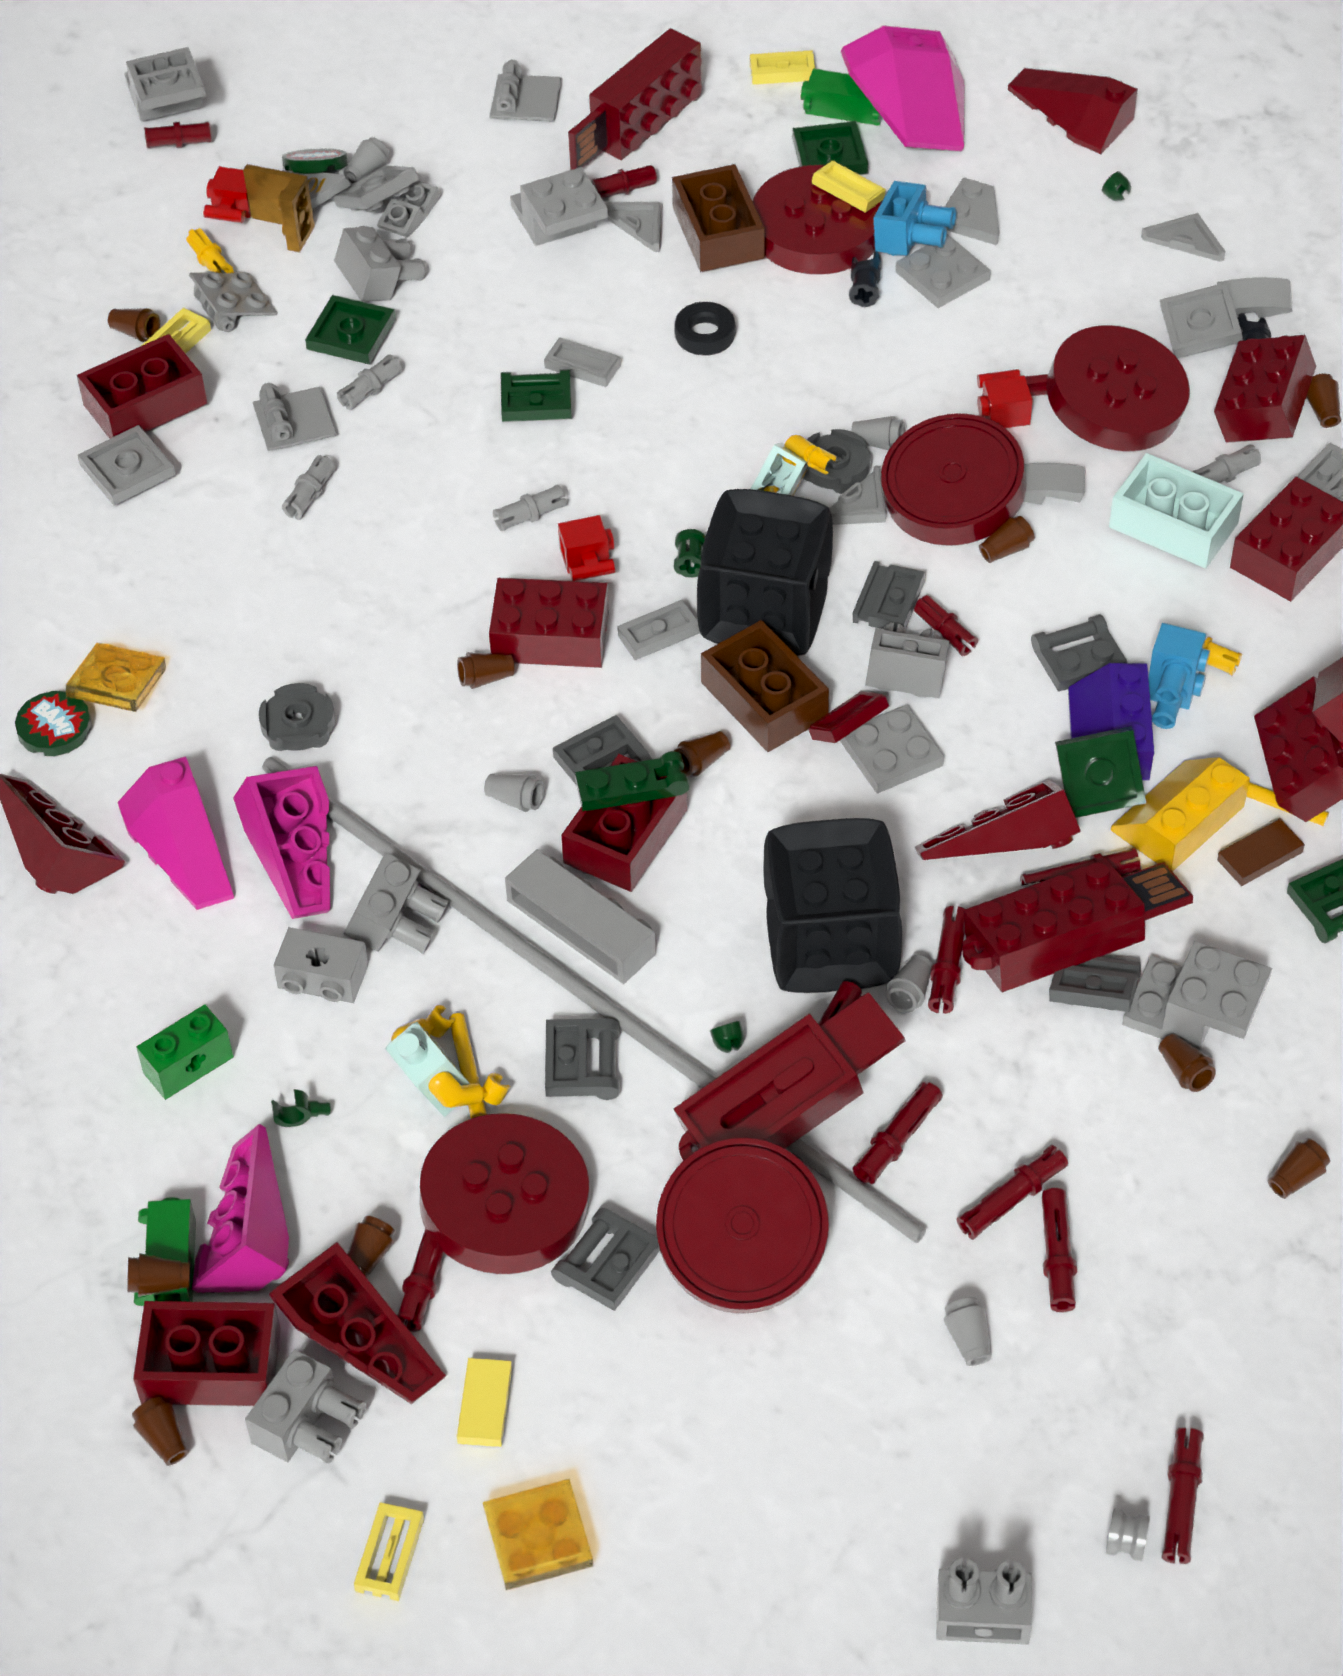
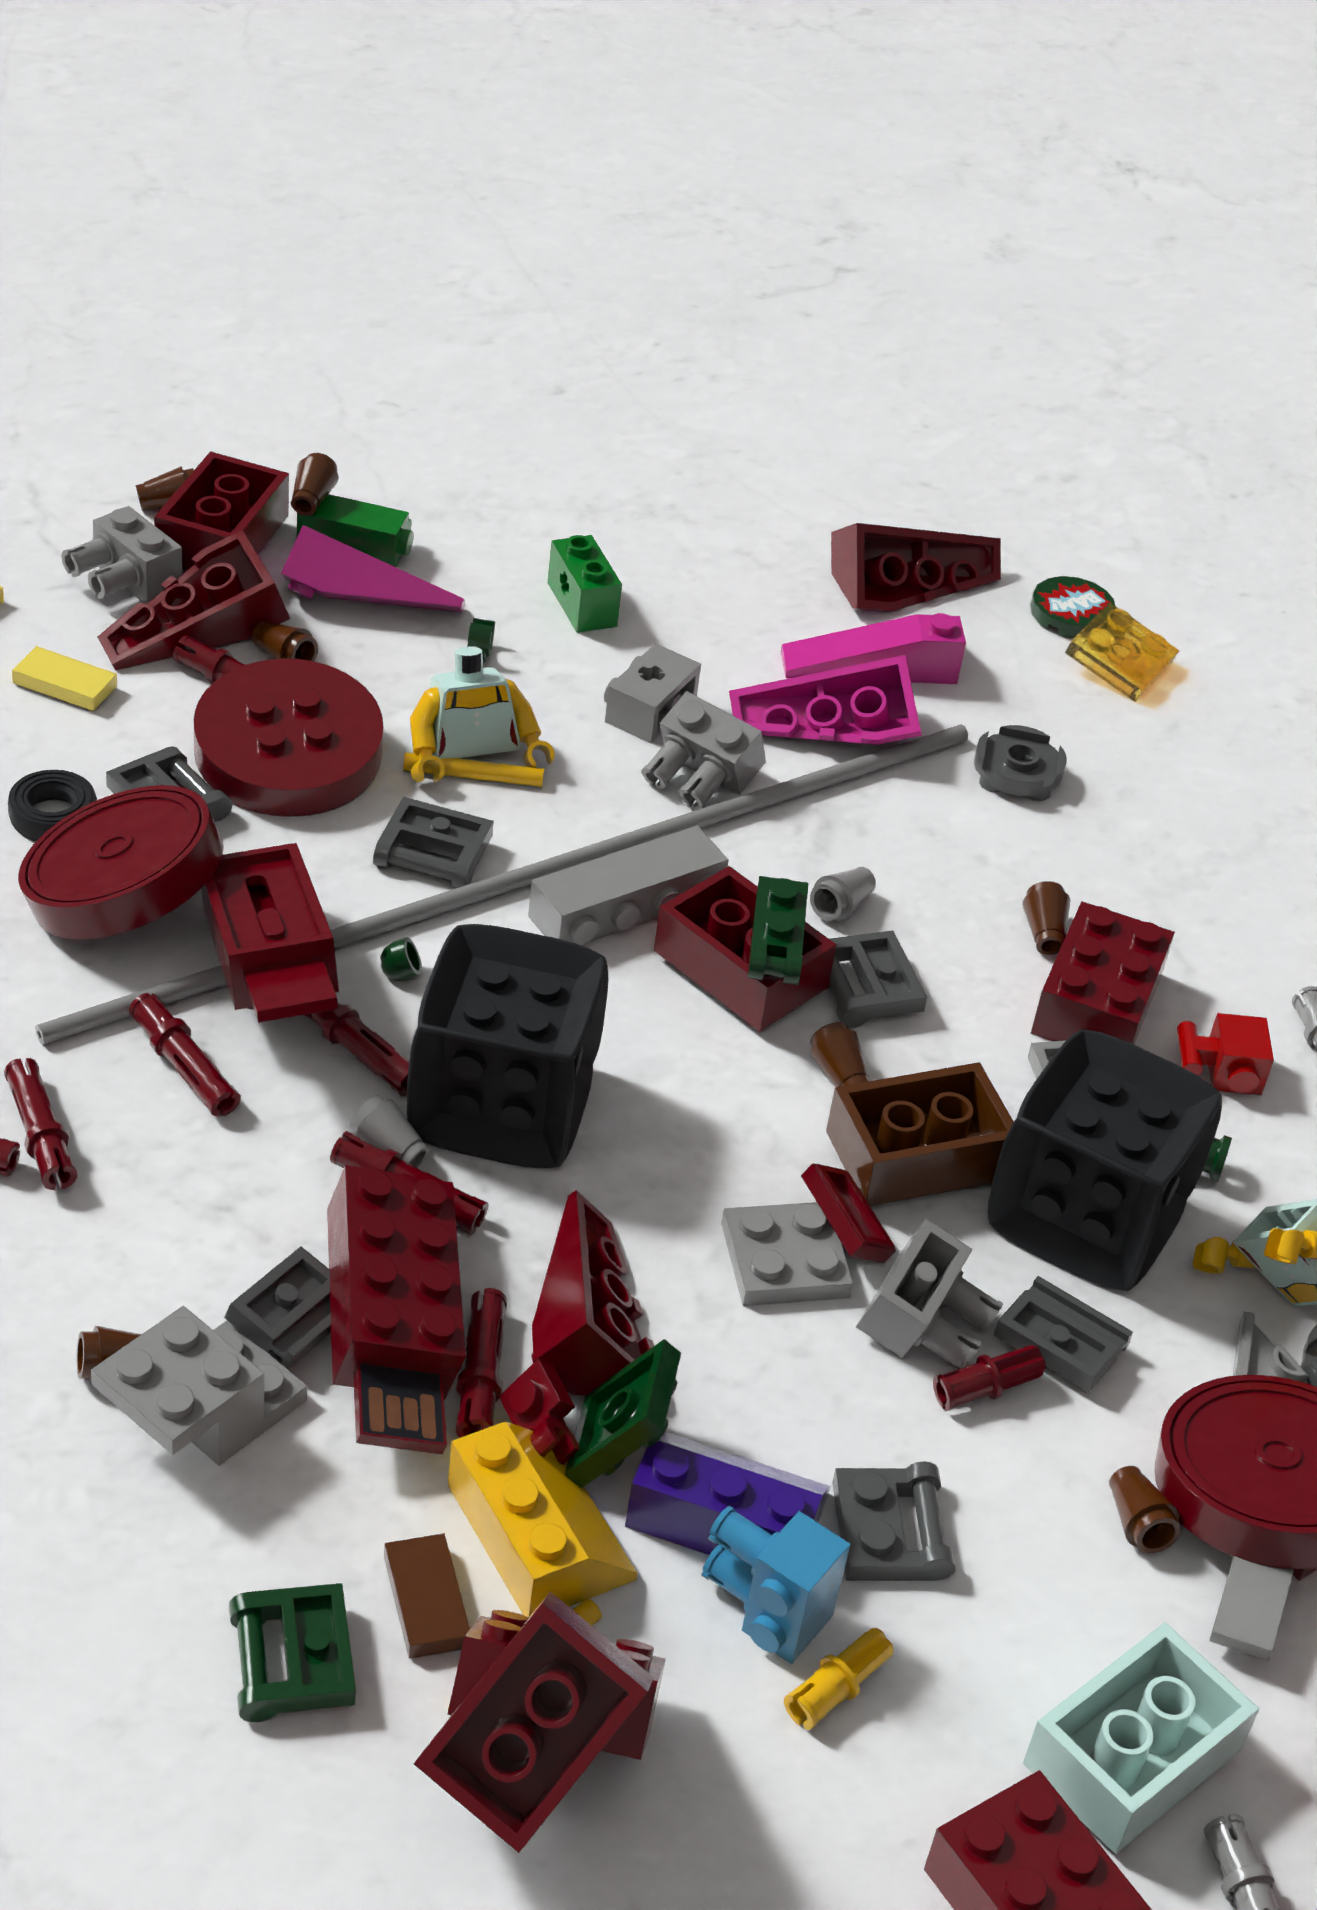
camera: 100 degrees right, 10 degrees down
(661, 1360) = (41, 787): none -> black tyre
(1106, 824) = (540, 1403): none -> dark red plate

